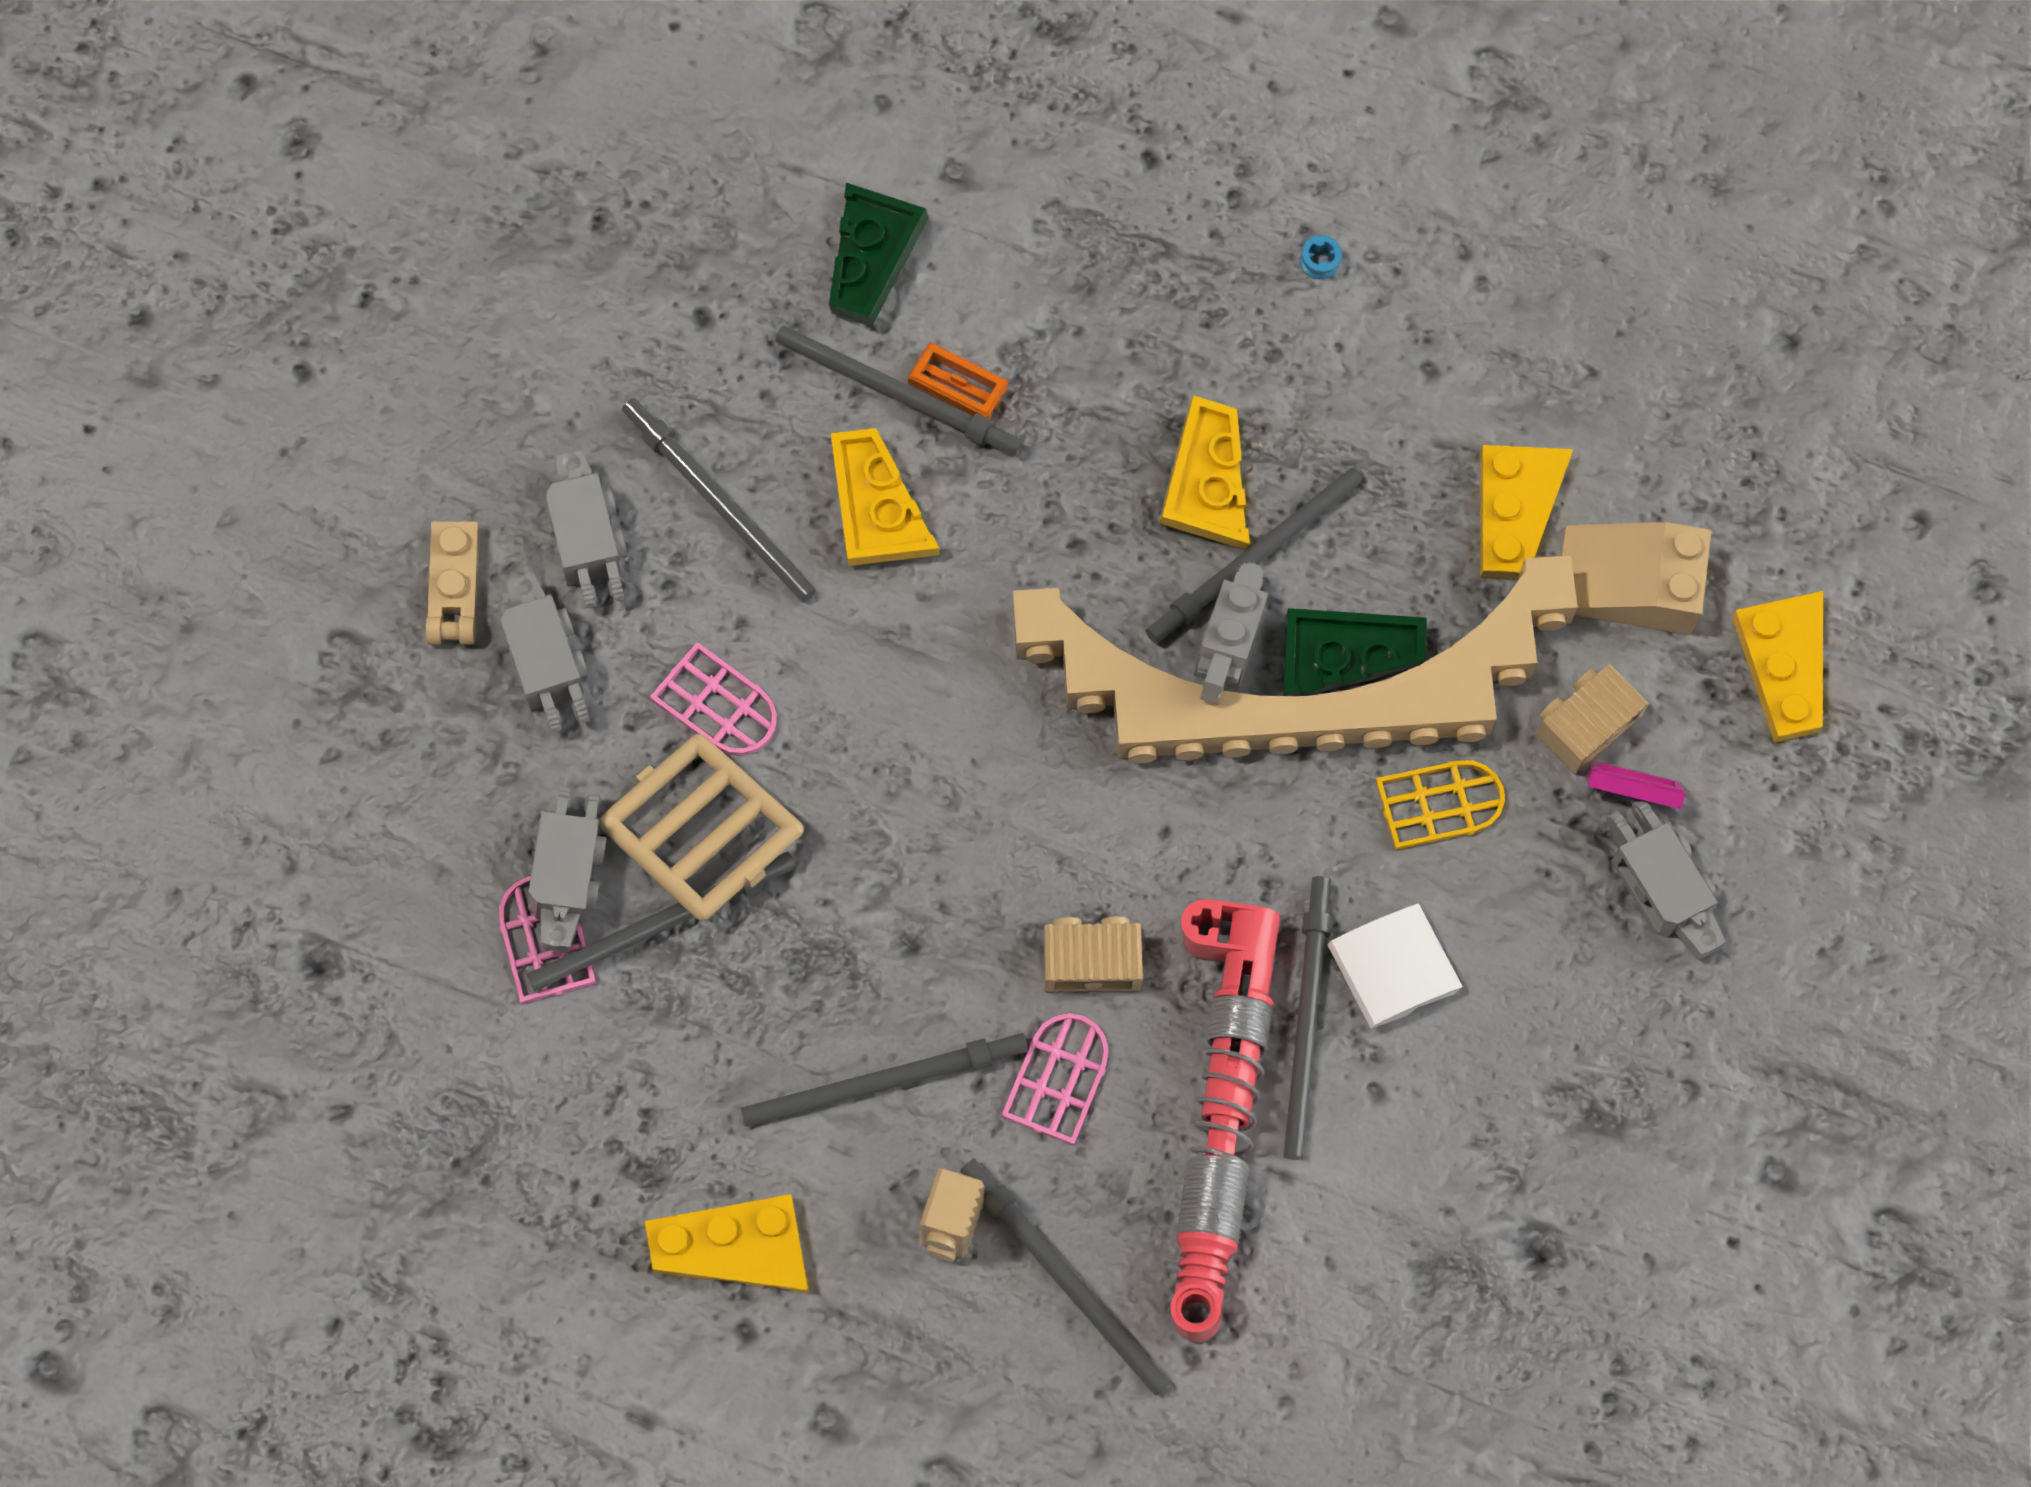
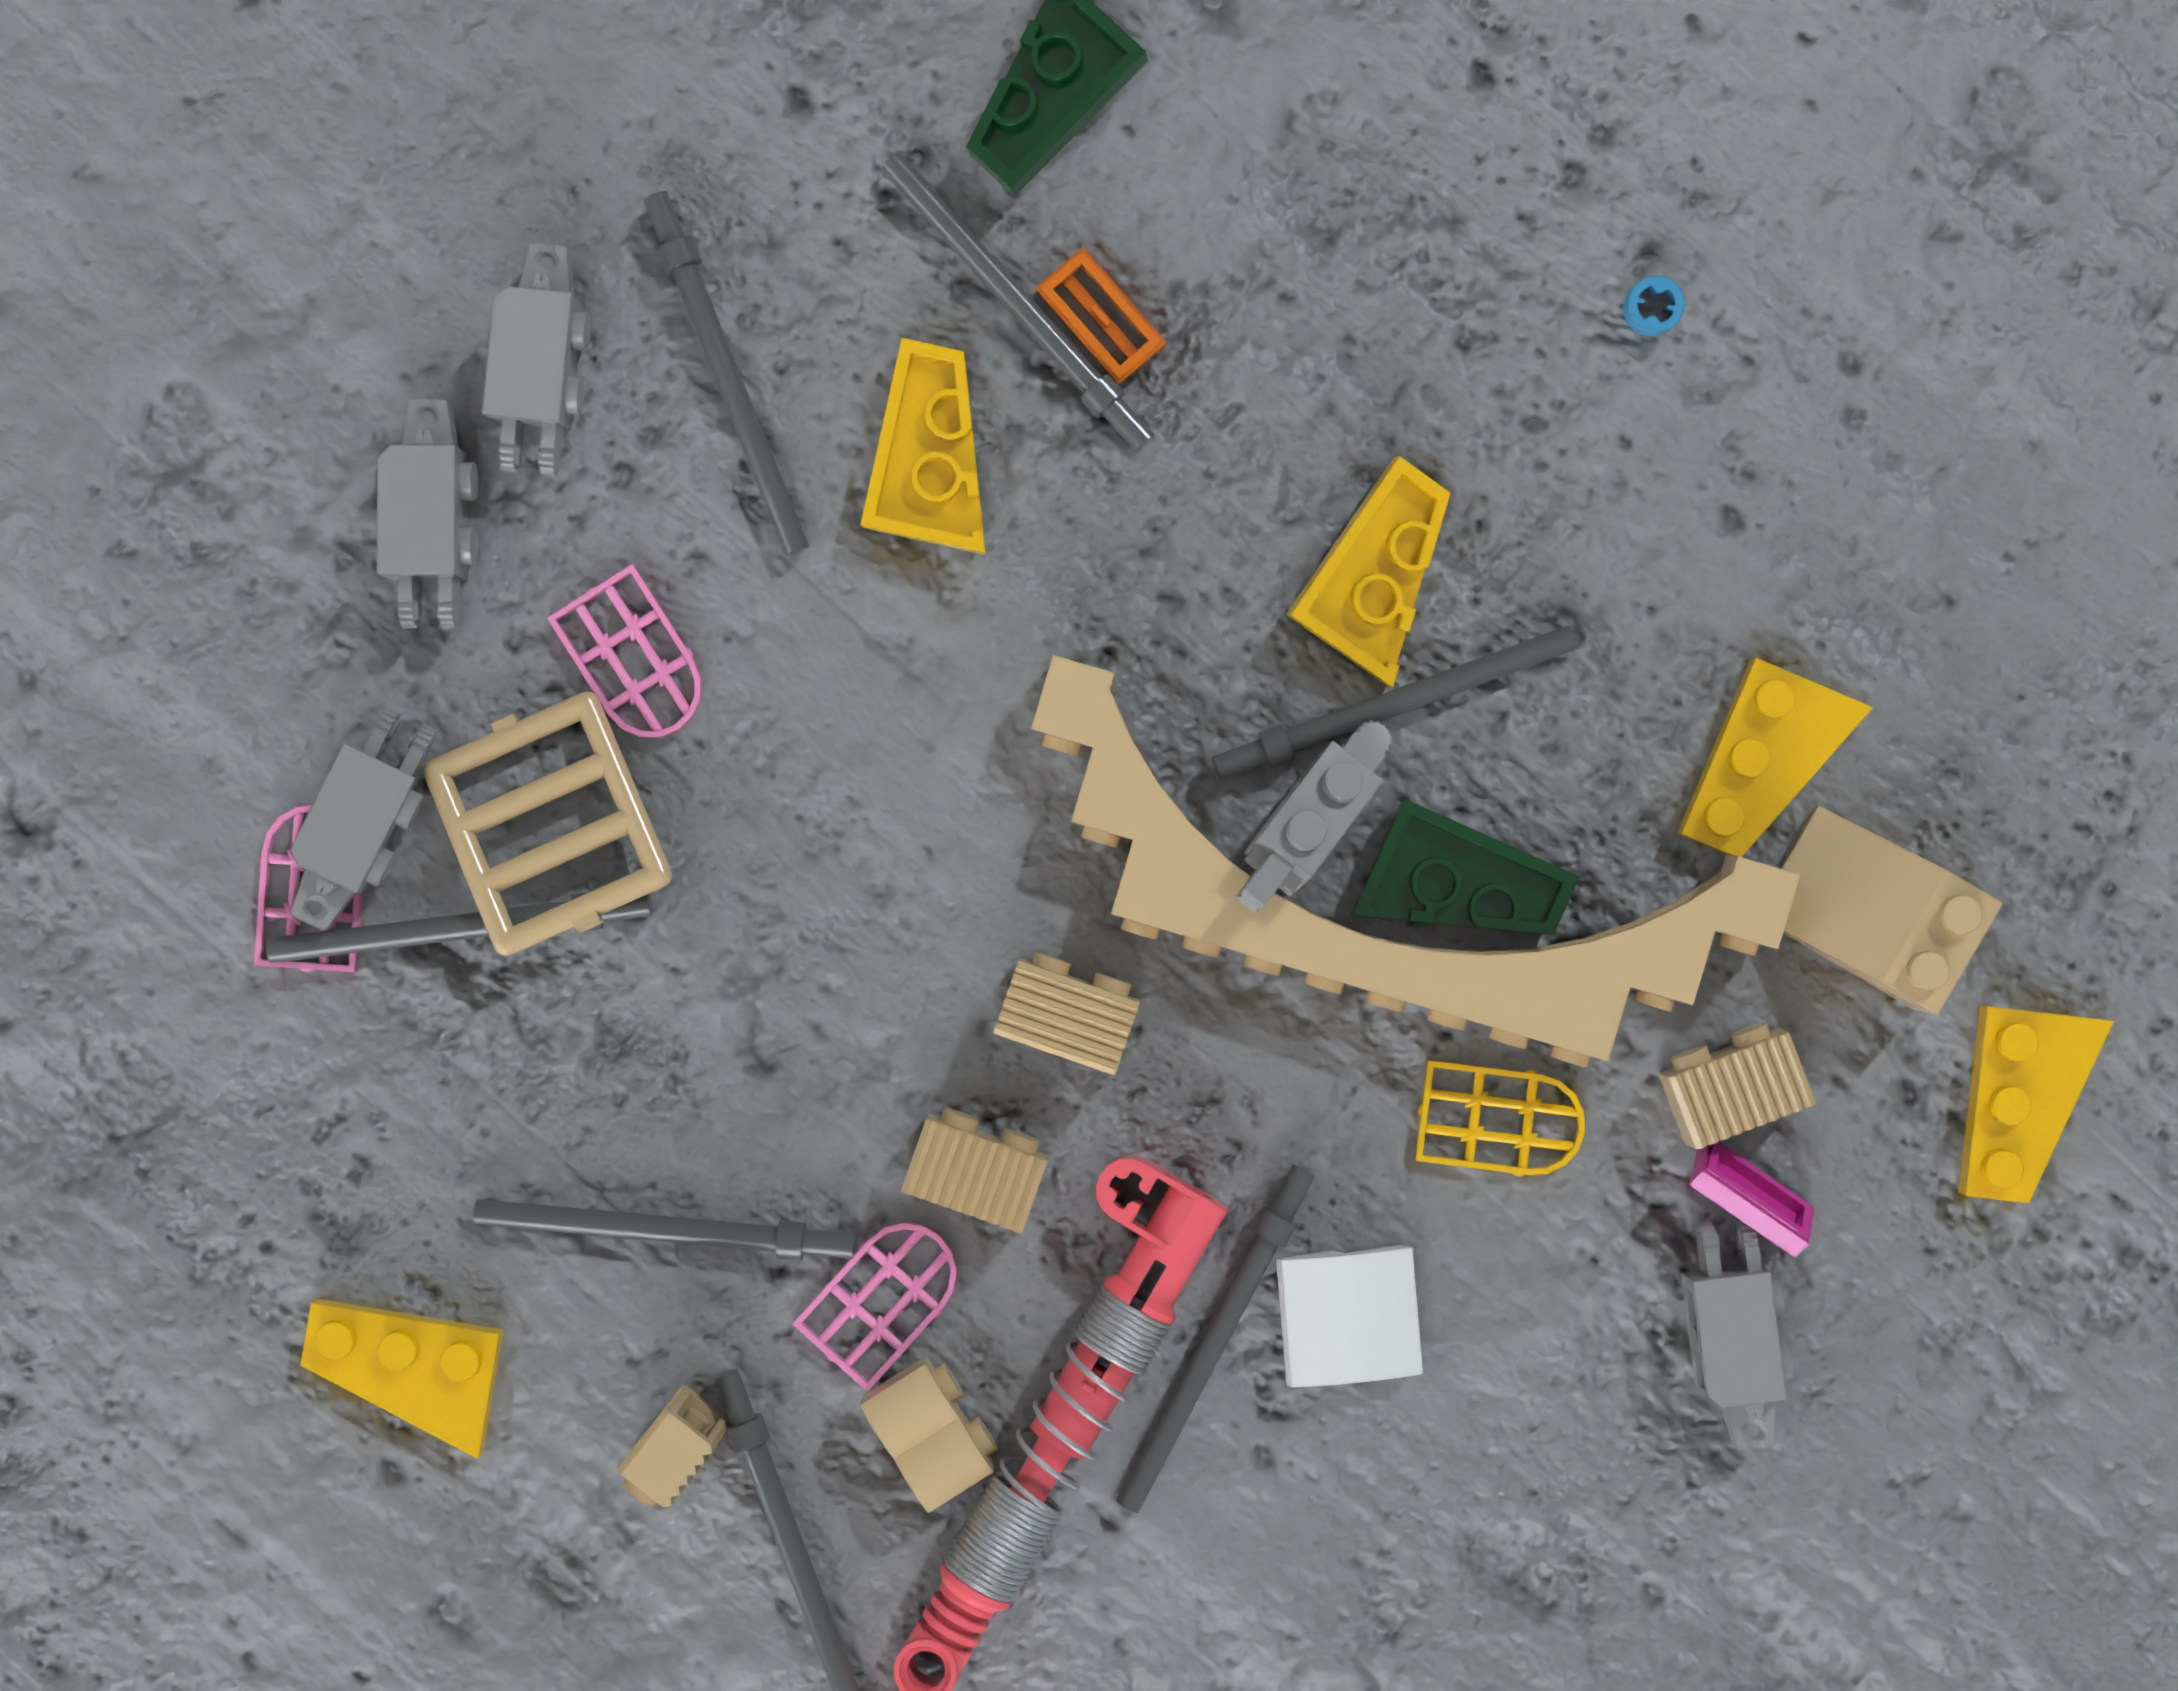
camera: 30 degrees right, 20 degrees up
(453, 582) = (347, 369): tan plate -> none
(1115, 828) = (1068, 1014): none -> tan brick
(1130, 1149) = (929, 1433): none -> tan brick

